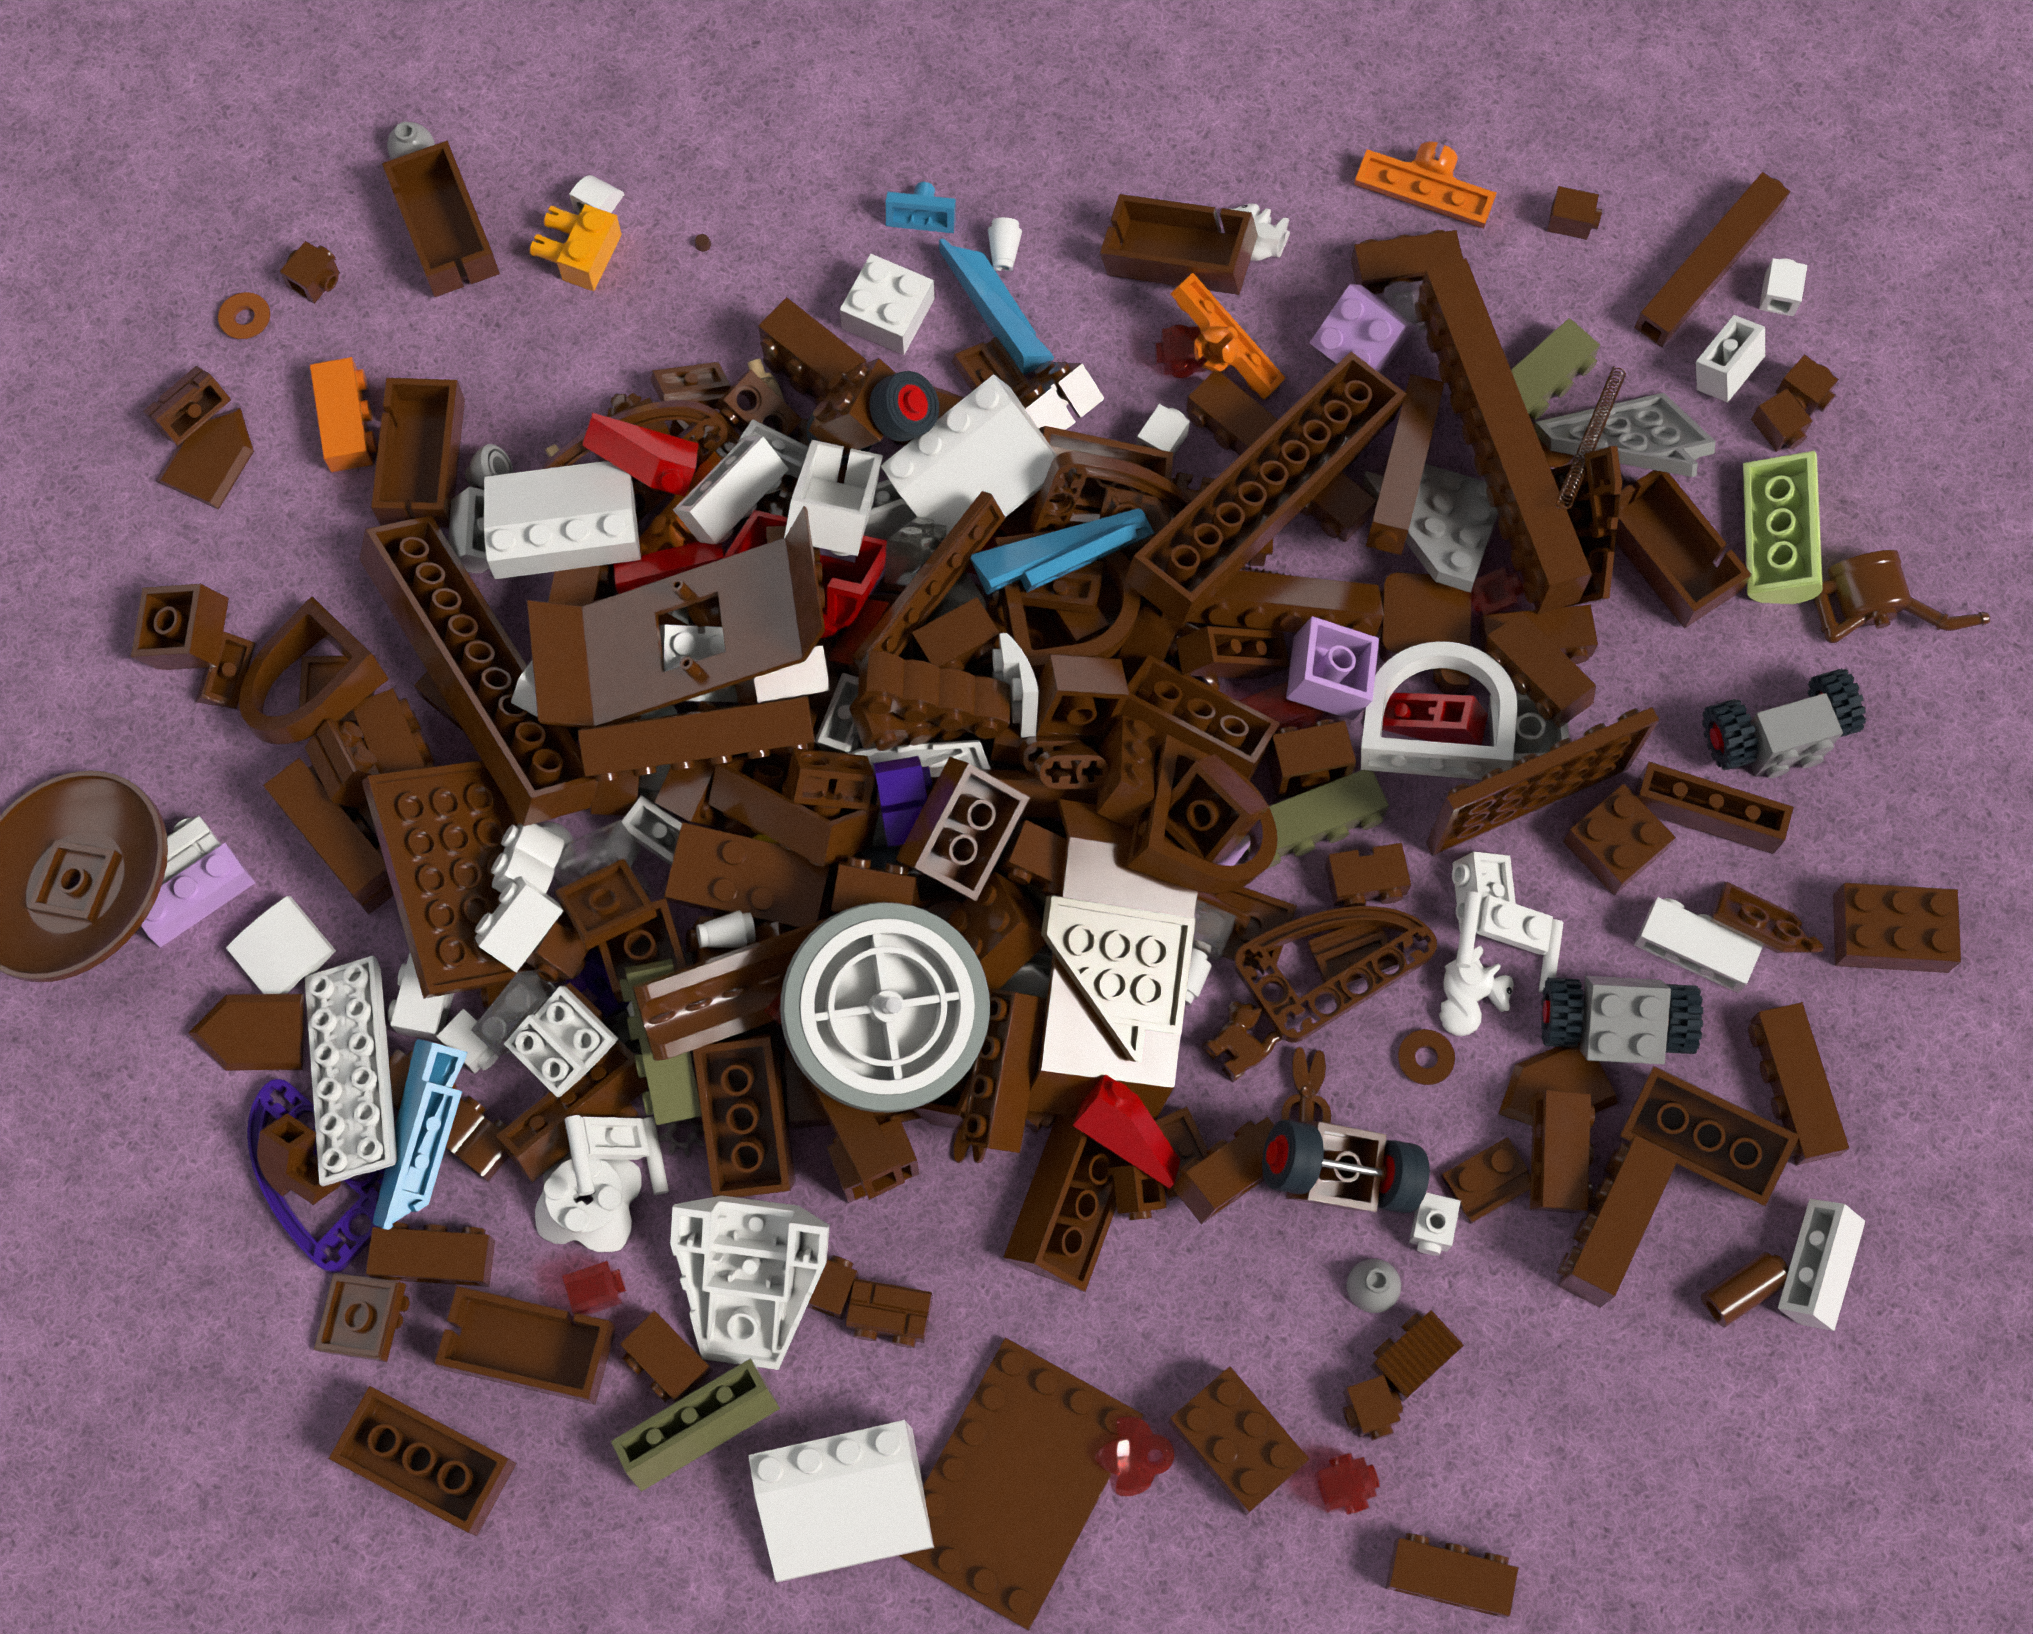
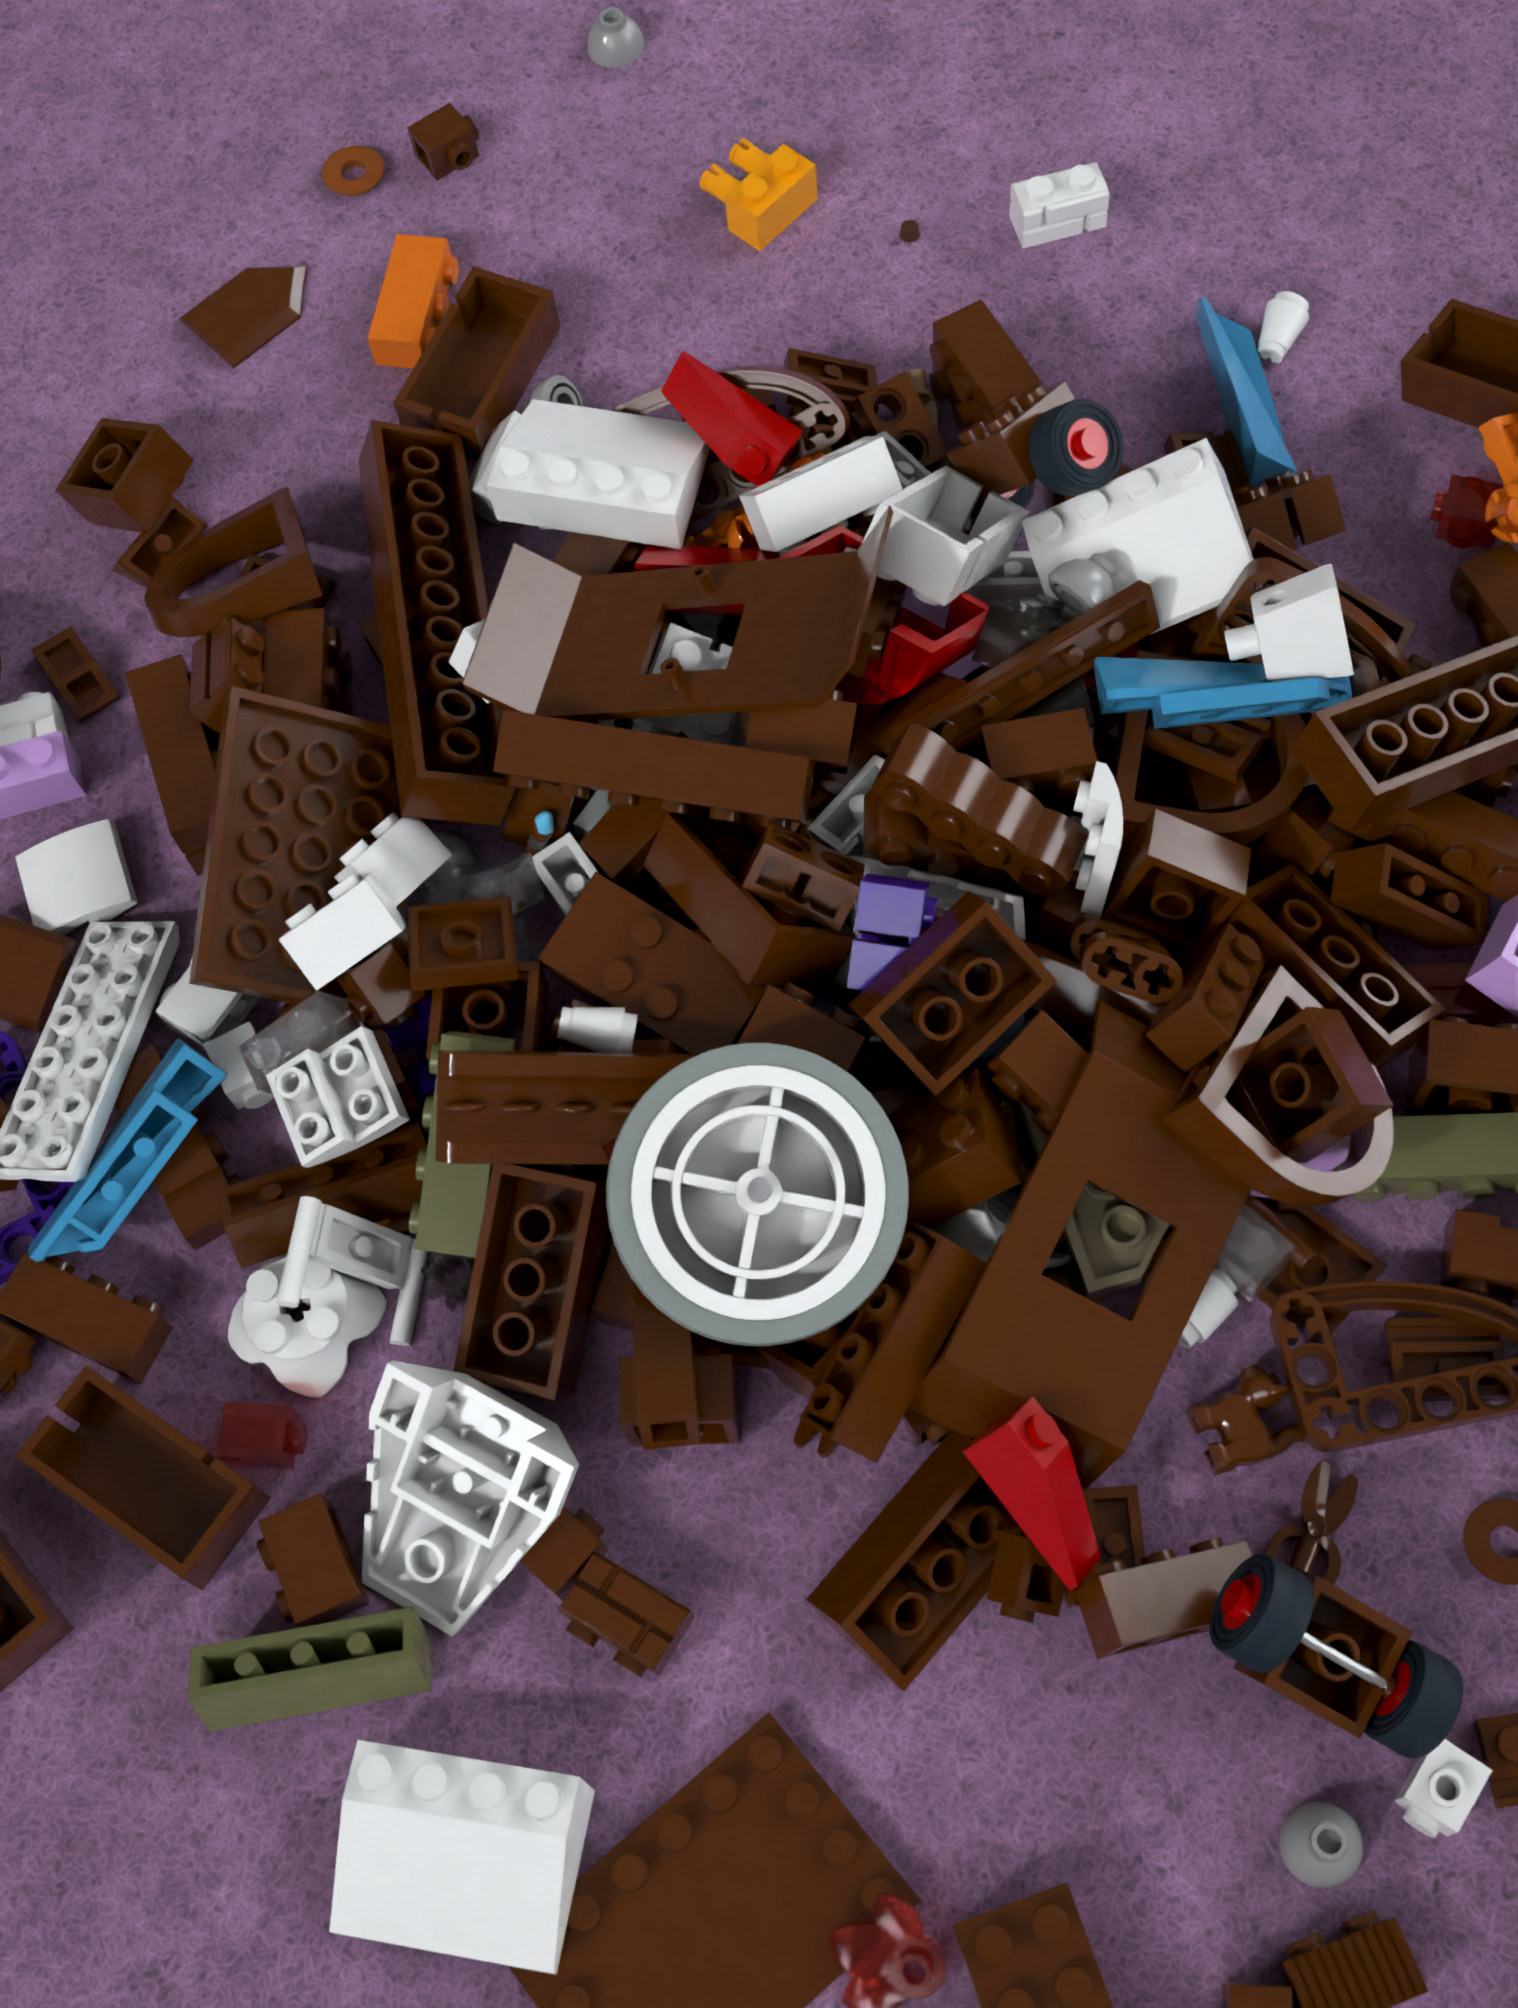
camera: 30 degrees right, 5 degrees down
(187, 405) = (244, 243): reddish brown brick -> none
(205, 793) = (75, 674): none -> reddish brown slope
(441, 218) = (612, 120): reddish brown piece -> none
(595, 194) = (804, 140): white brick -> none
(622, 802) = (542, 830): none -> piece
(809, 192) = (1059, 204): none -> white brick
(887, 304) = (1107, 352): white brick -> none
(921, 210) = (1189, 262): dark azure tile -> none
(943, 503) = (1083, 582): none -> light grey brick
(1100, 497) = (1296, 629): none -> white torso
(1125, 965) = (1110, 1253): wing -> none
(1164, 430) = (1415, 597): white brick -> none

